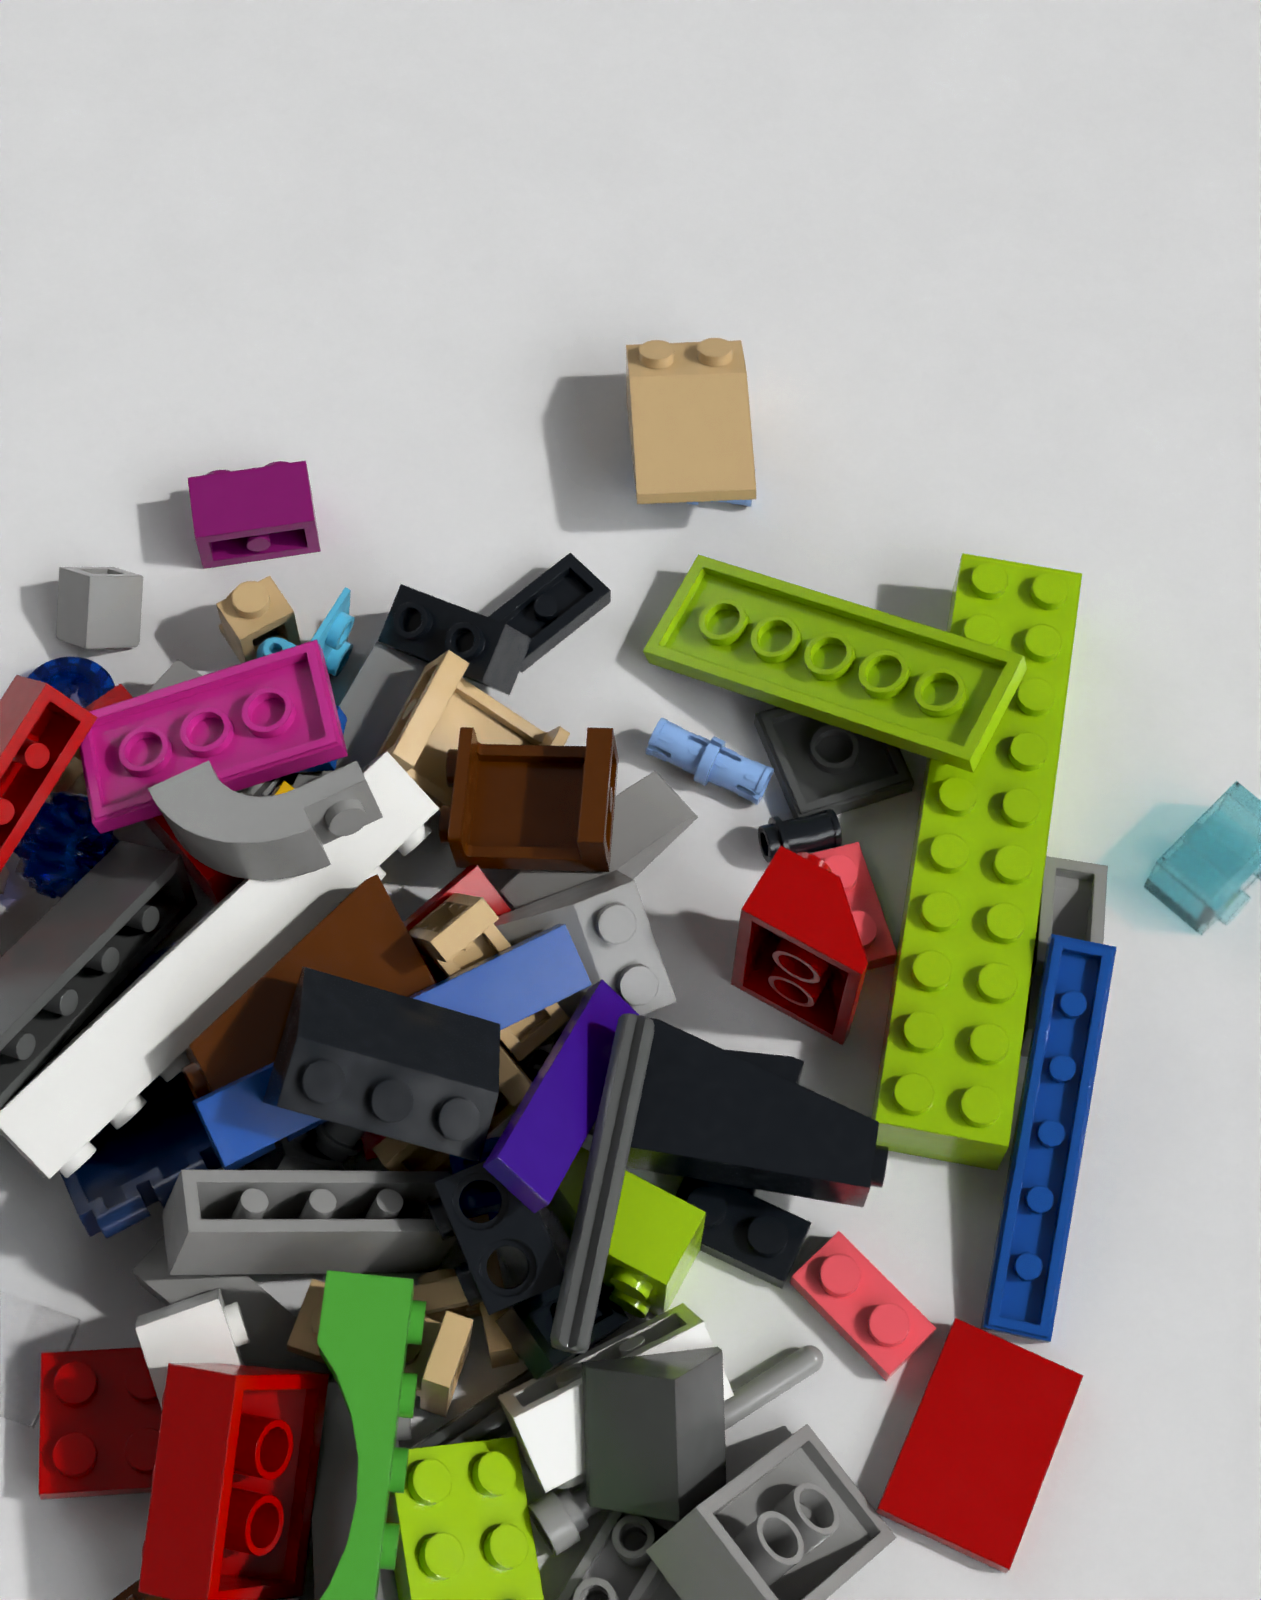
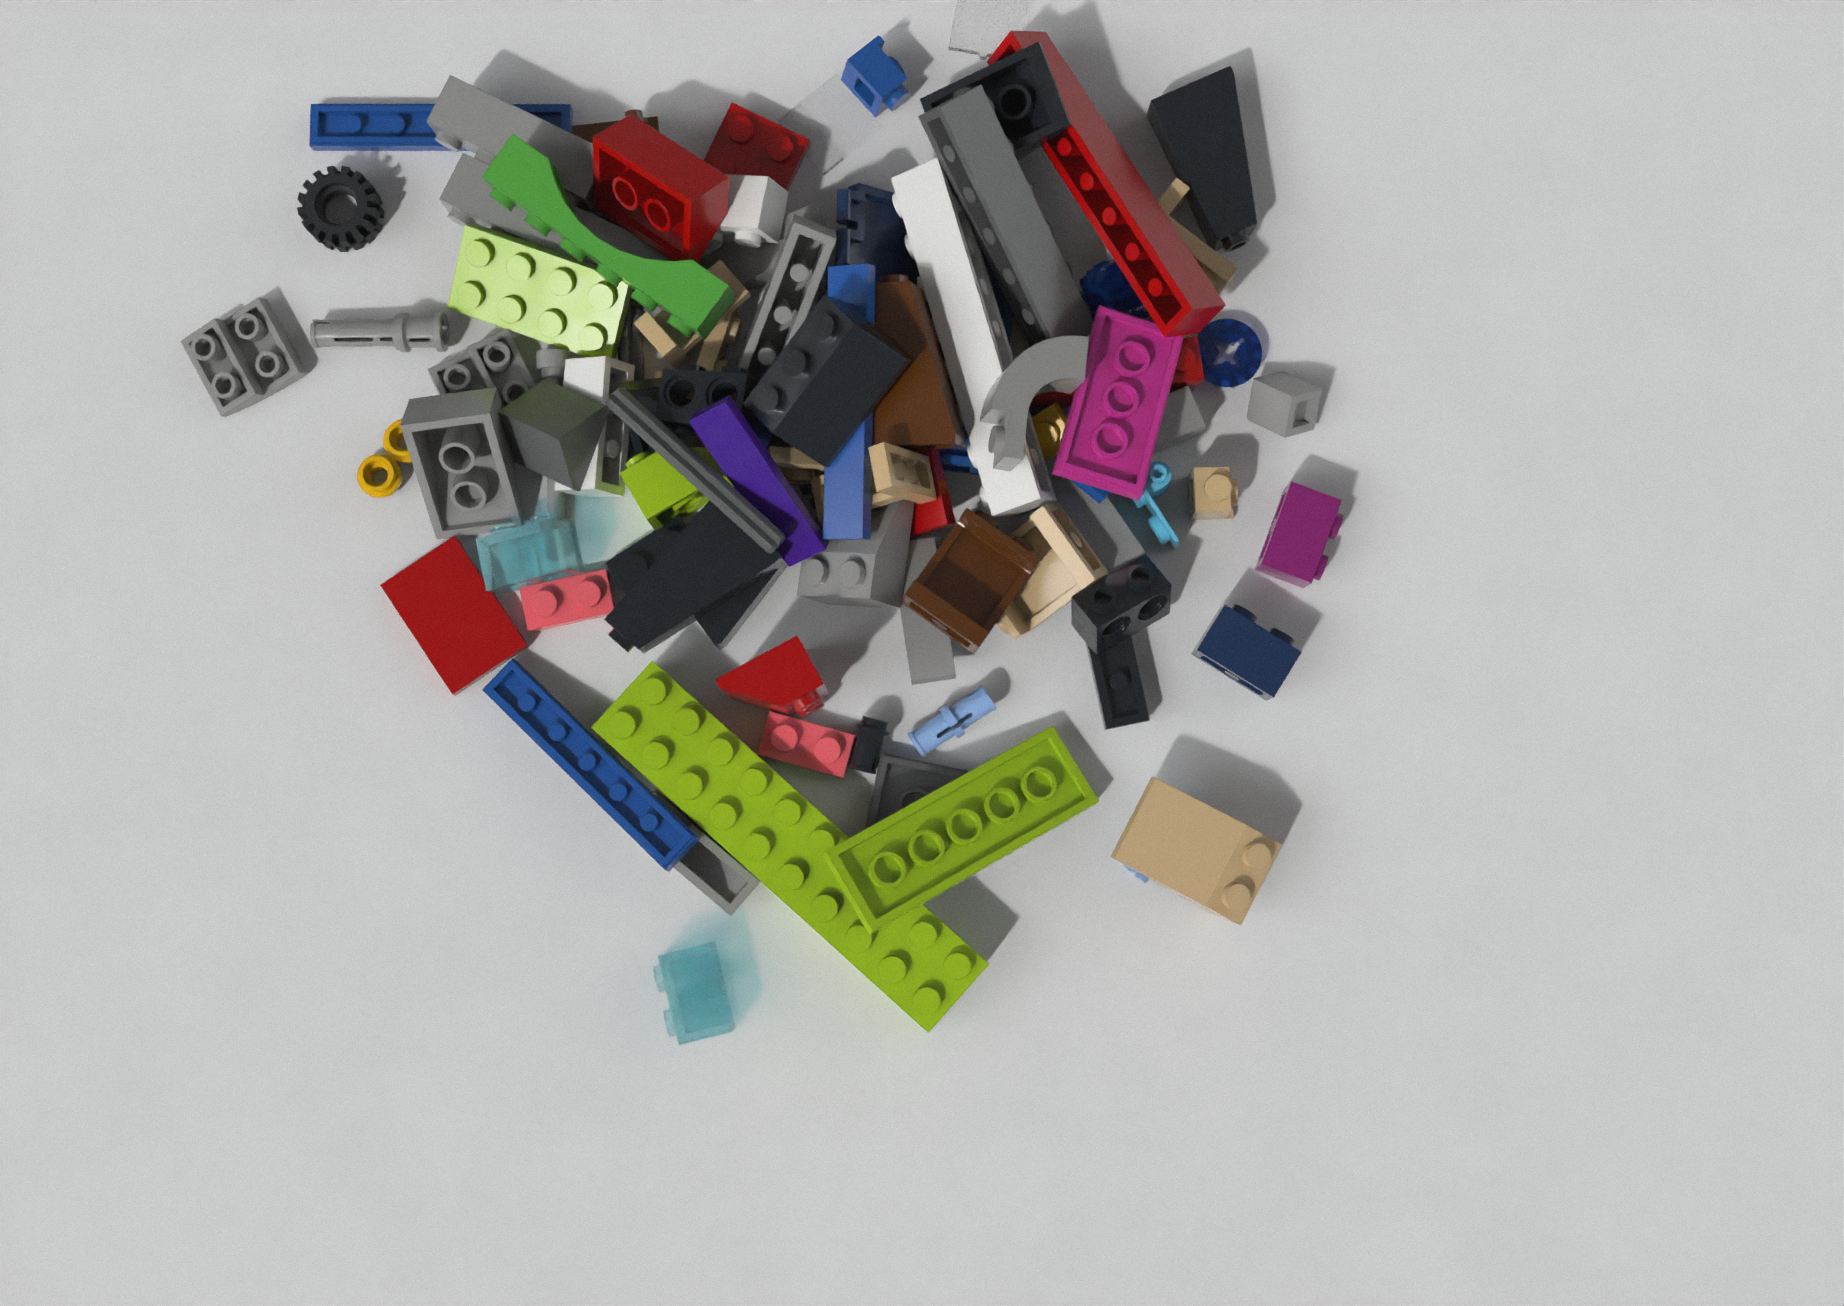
camera: 120 degrees right, 20 degrees up
(426, 493) = (1247, 651): none -> dark blue brick
(839, 1378) = (529, 553): none -> clear light blue brick

